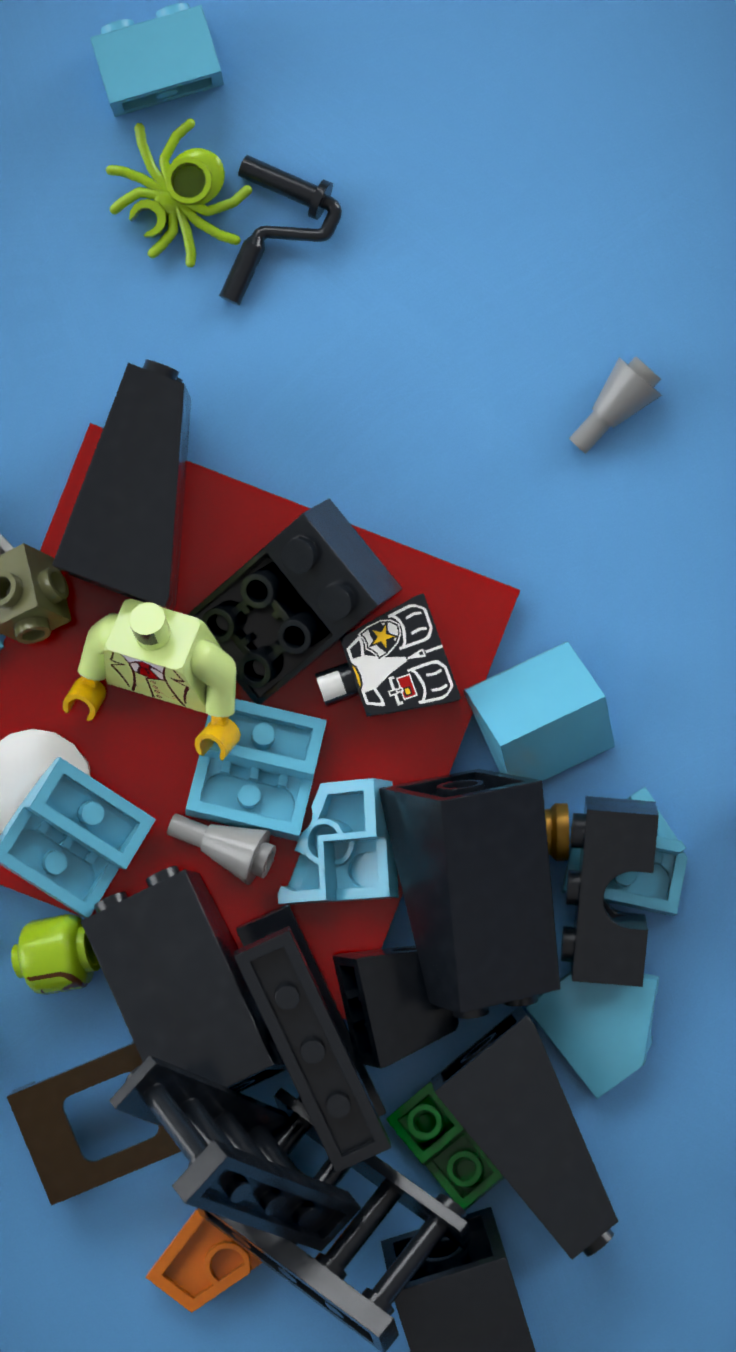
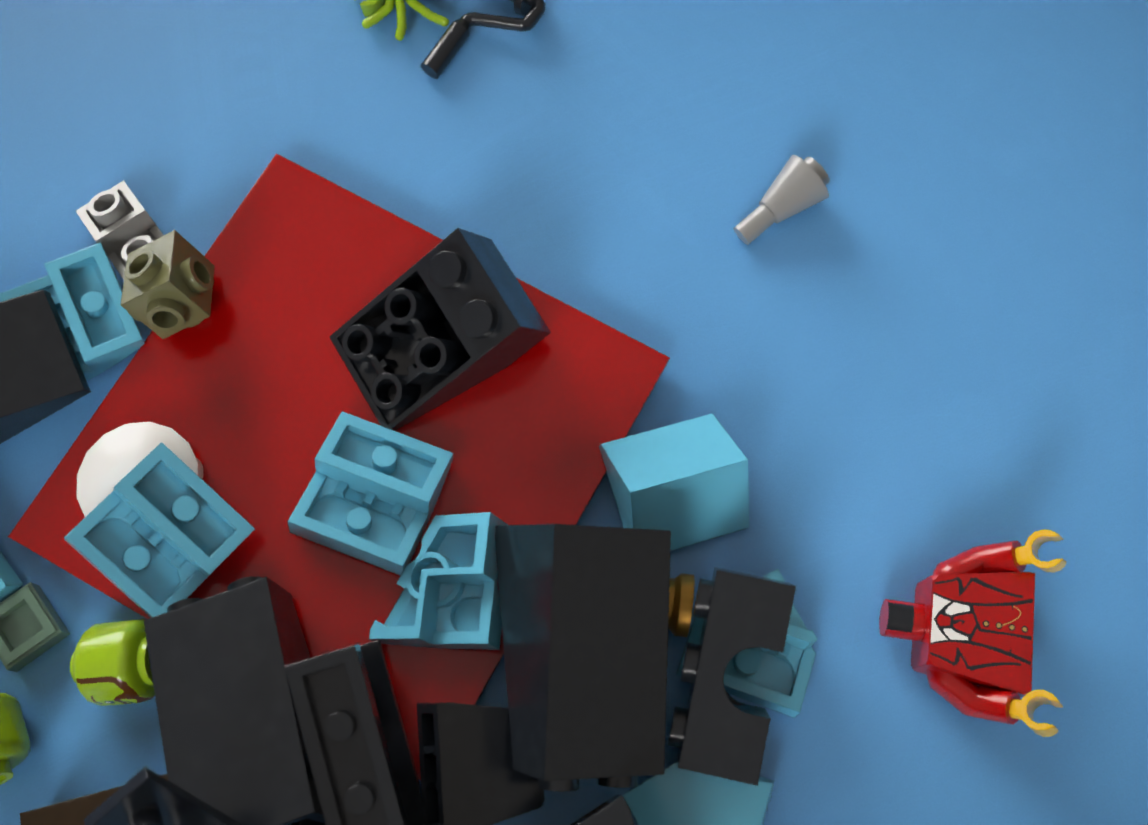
camera: 15 degrees right, 15 degrees down
(132, 497) = (292, 198): black slope -> none
(162, 658) = (291, 357): yellowish green torso -> none
(237, 849) = (337, 574): light grey cone -> none
(393, 664) = (530, 403): torso -> none

